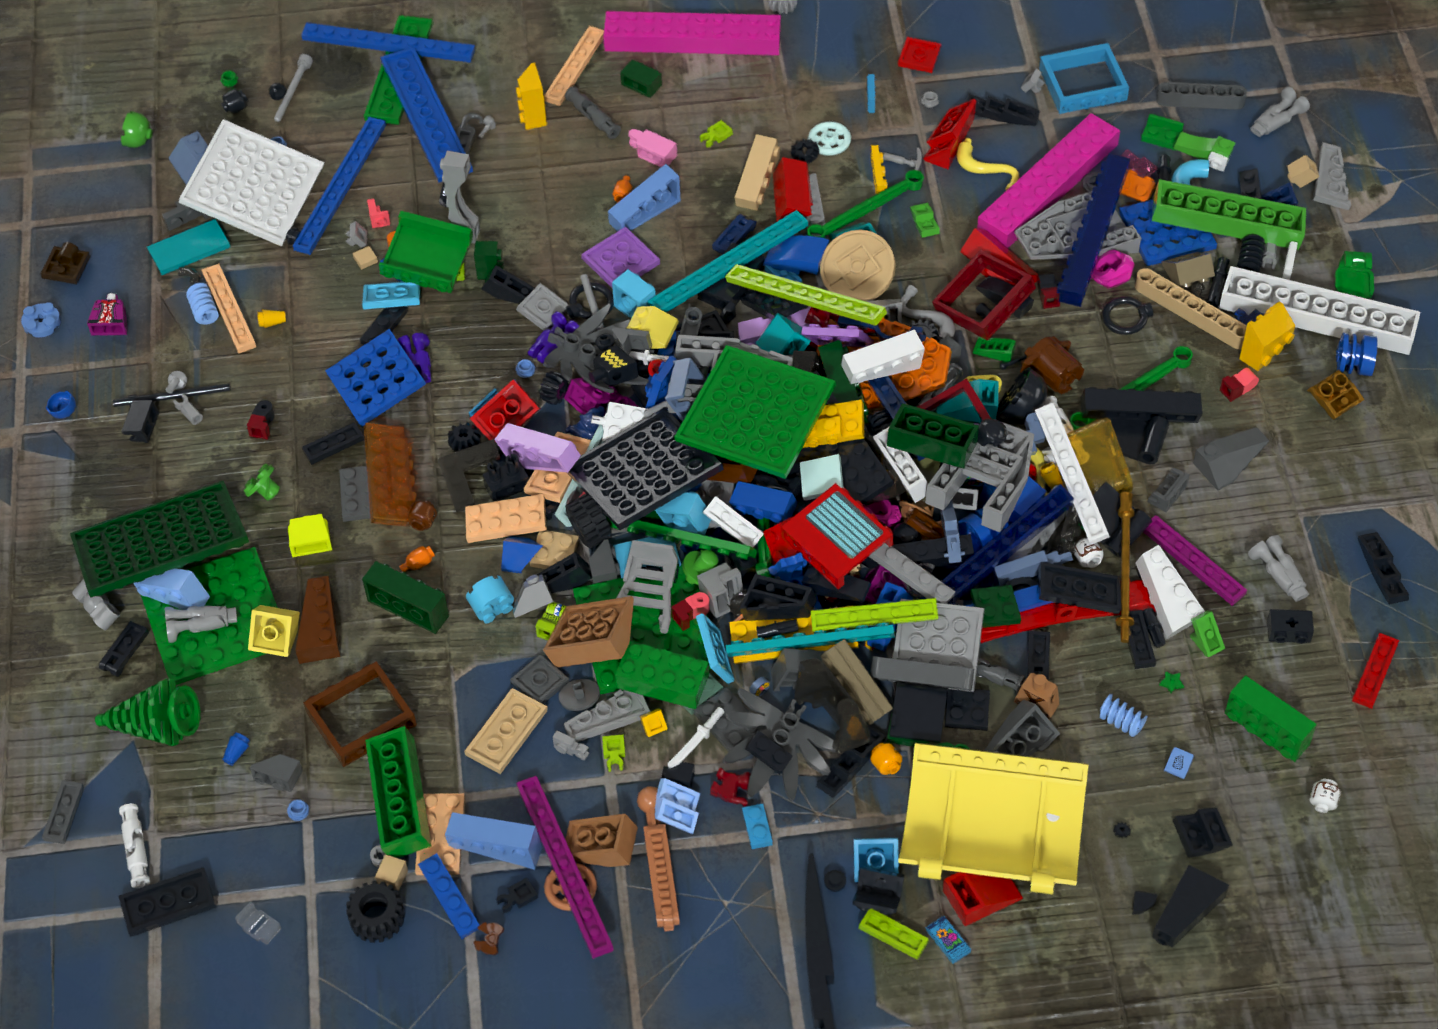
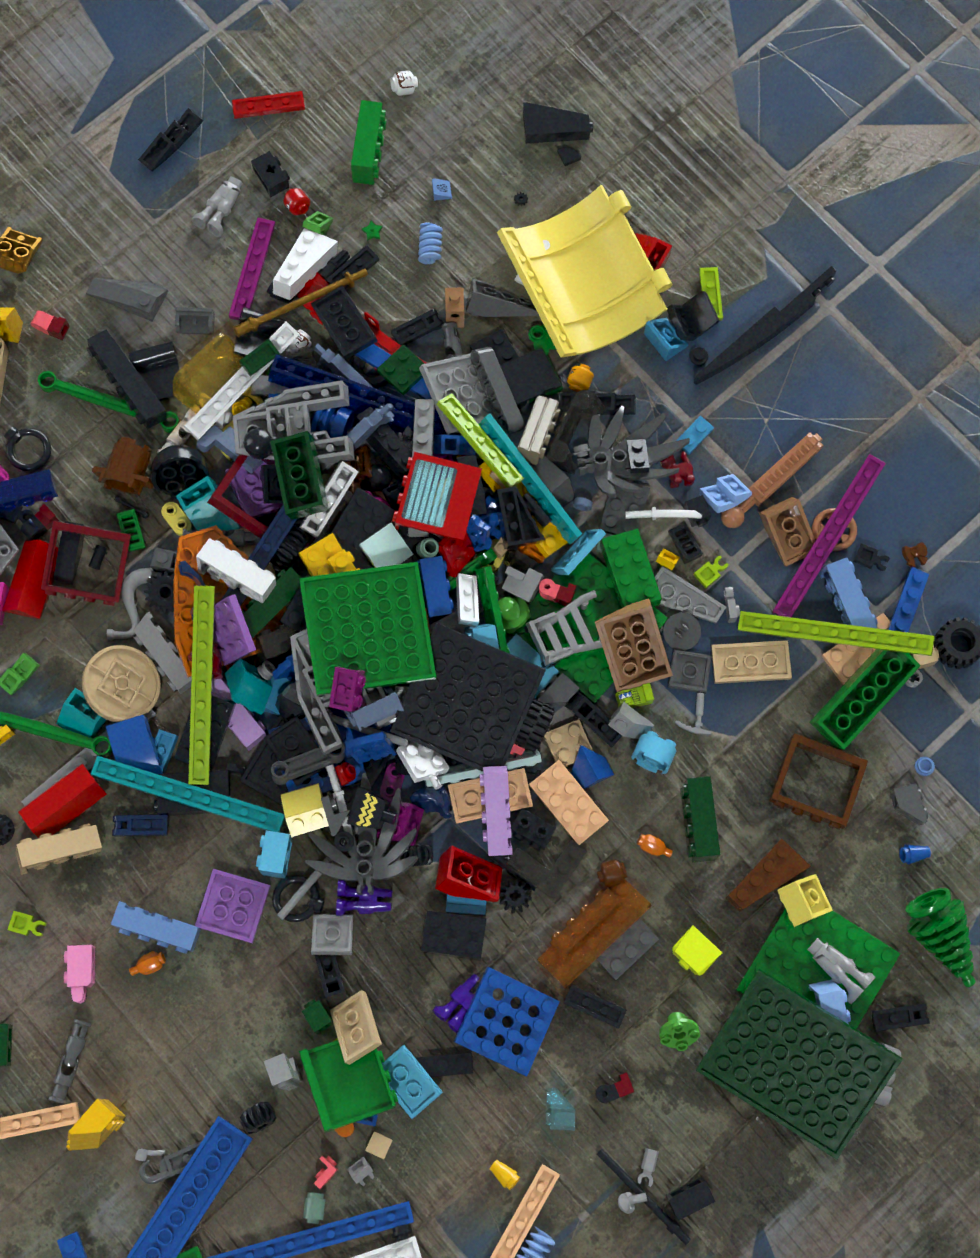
camera: 130 degrees left, 20 degrees up
(279, 376) = (561, 1112): none -> clear light blue slope
(358, 195) = (314, 1207): none -> sand green brick
(457, 273) = (355, 1027): none -> tan plate
(466, 795) = (836, 633): none -> lime plate
(470, 380) = (453, 935): none -> black brick
(485, 654) = (699, 713): none -> light grey piece
(525, 368) = (407, 902): medium blue plate -> none
(648, 754) = (686, 558): none -> black slope
(709, 362) = (347, 689): none -> magenta bracket
(796, 503) = (432, 546): none -> sand green brick
(813, 718) = (581, 450): none -> light grey plate
(948, 939) = (687, 259): tile -> none
(1083, 491) = (259, 357): none -> dark green tile
(1202, 832) = (486, 147): black slope -> none
(1244, 631) = (296, 201): none -> red head

